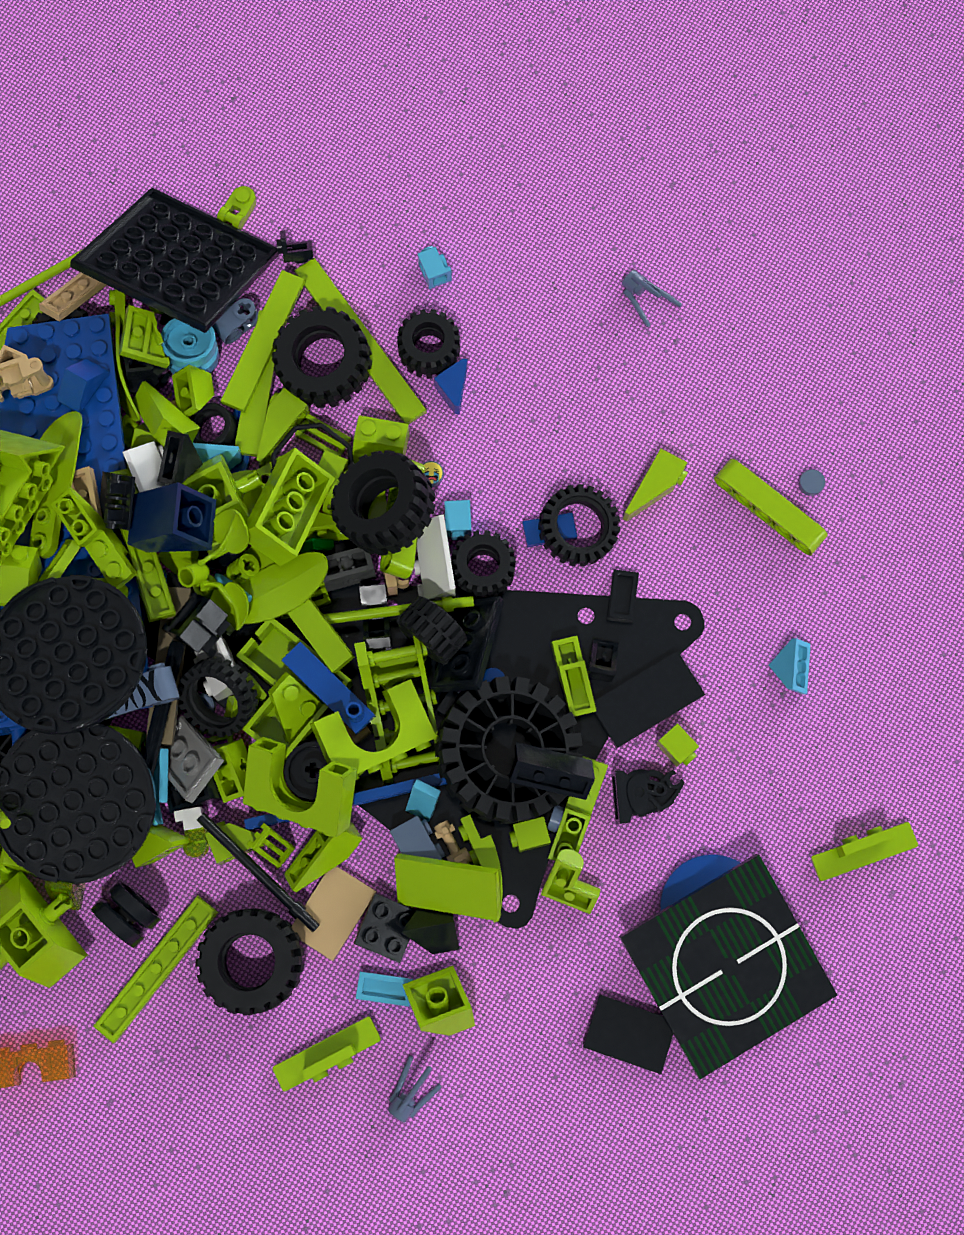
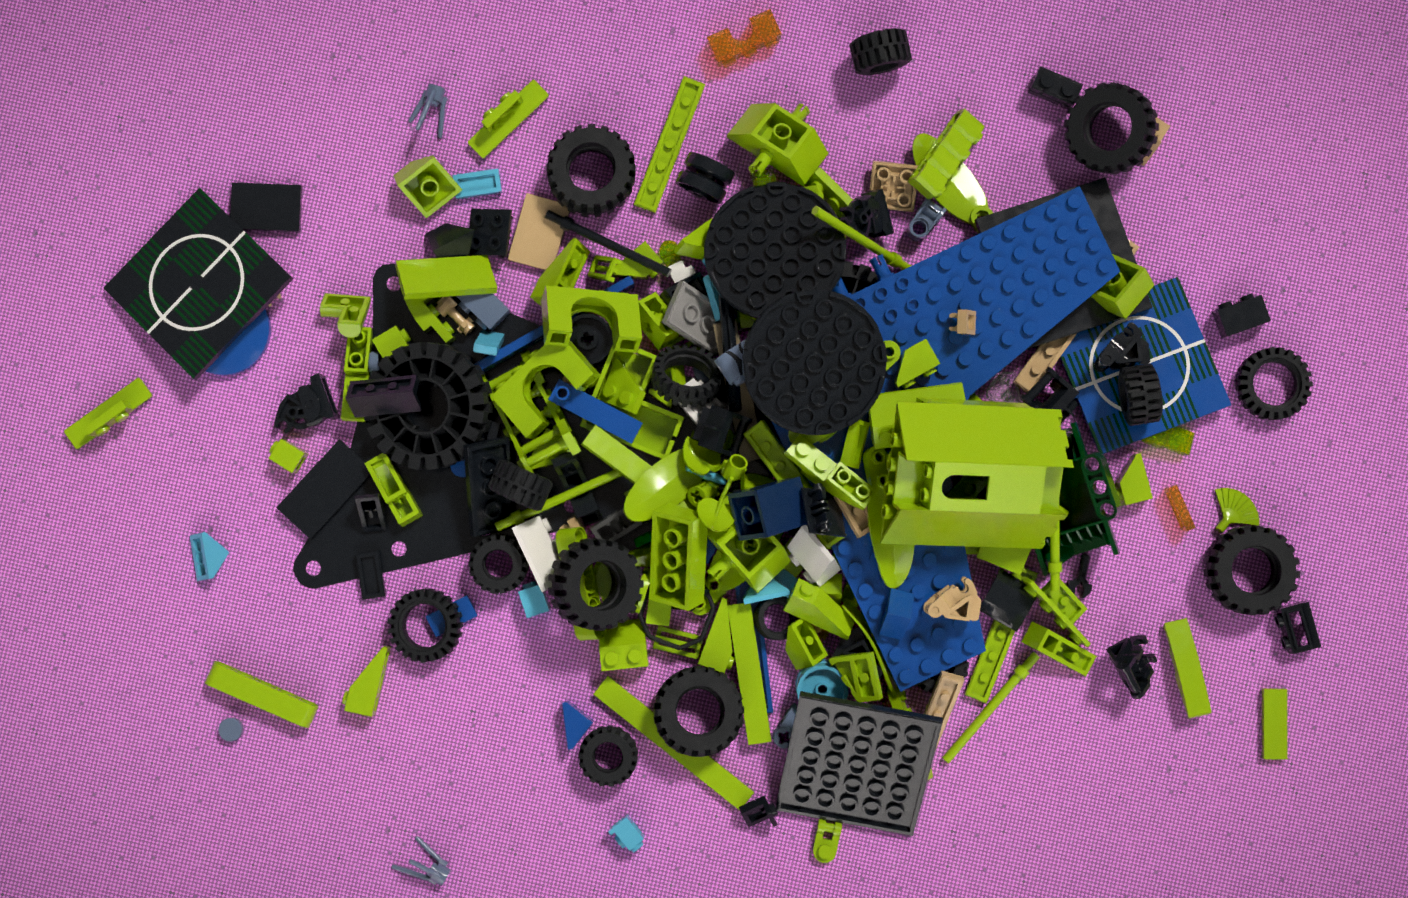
camera: 170 degrees right, 10 degrees up
(178, 459) = (787, 569): black slope -> none
(259, 347) = (756, 712): lime tile -> none
(434, 472) = (568, 637): tile -> none

